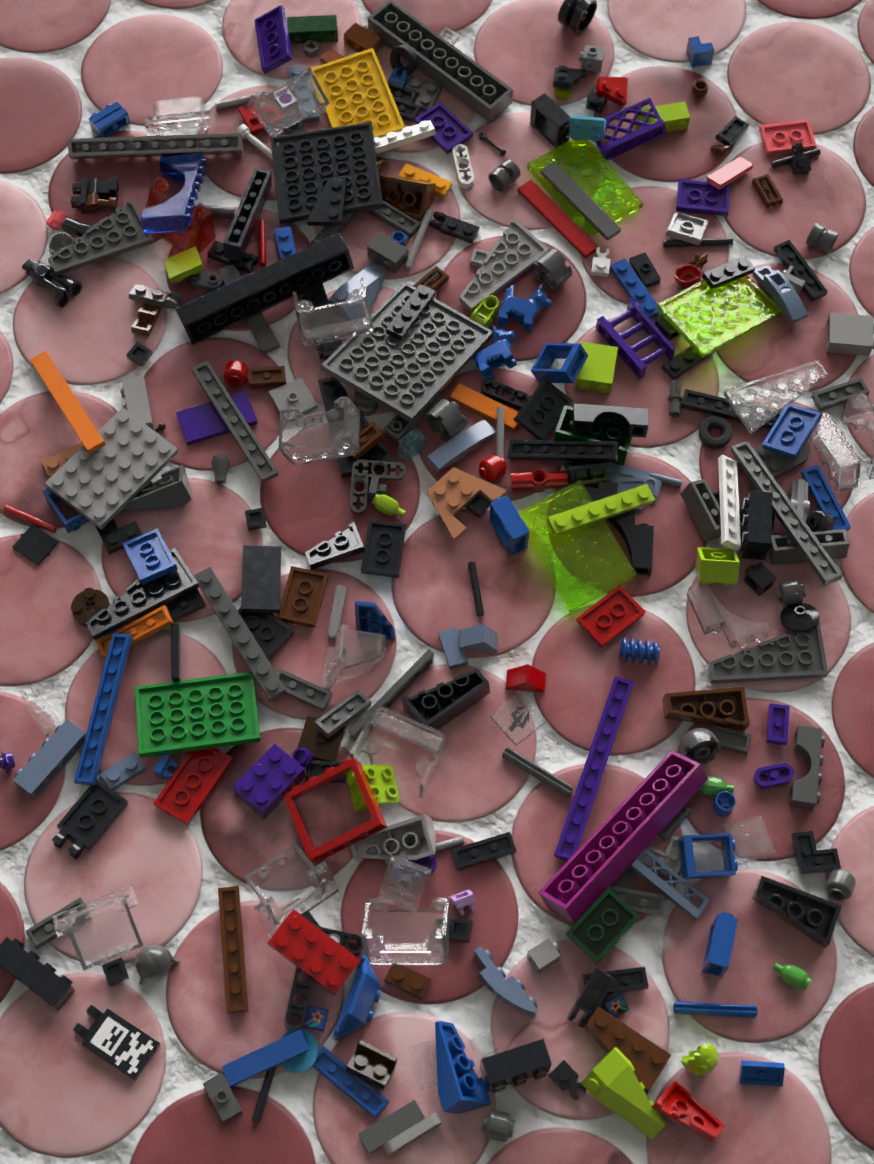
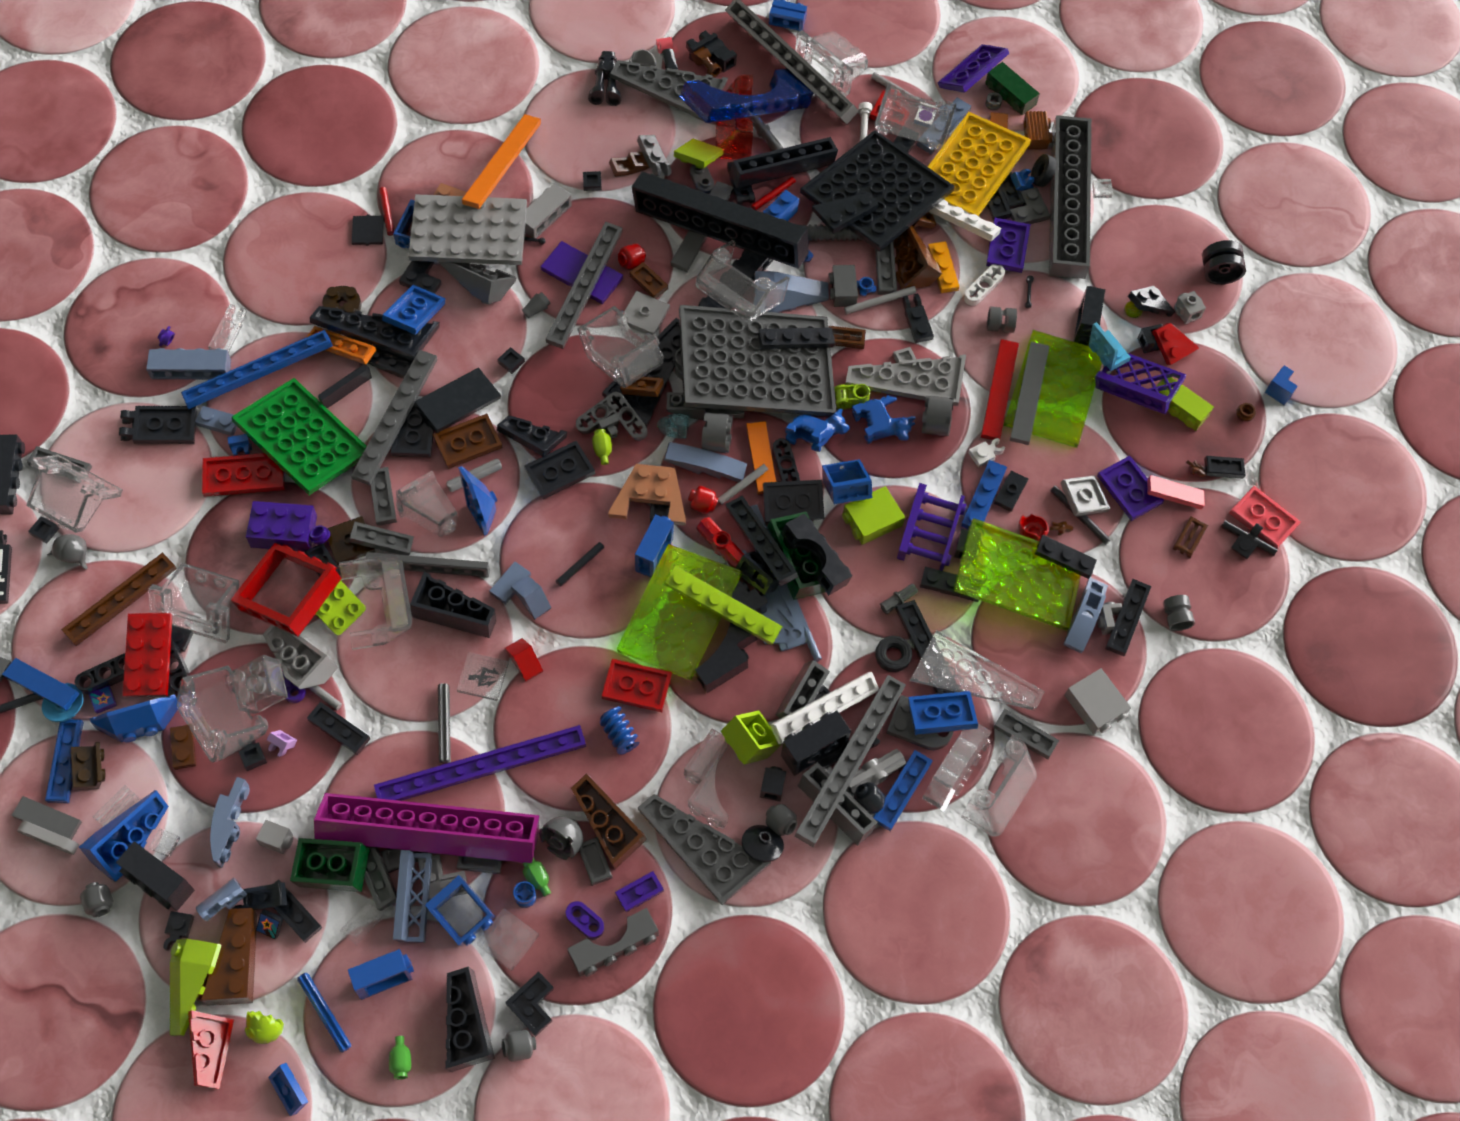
camera: 50 degrees right, 0 degrees up
(573, 1025) = (225, 896): none -> sand blue slope

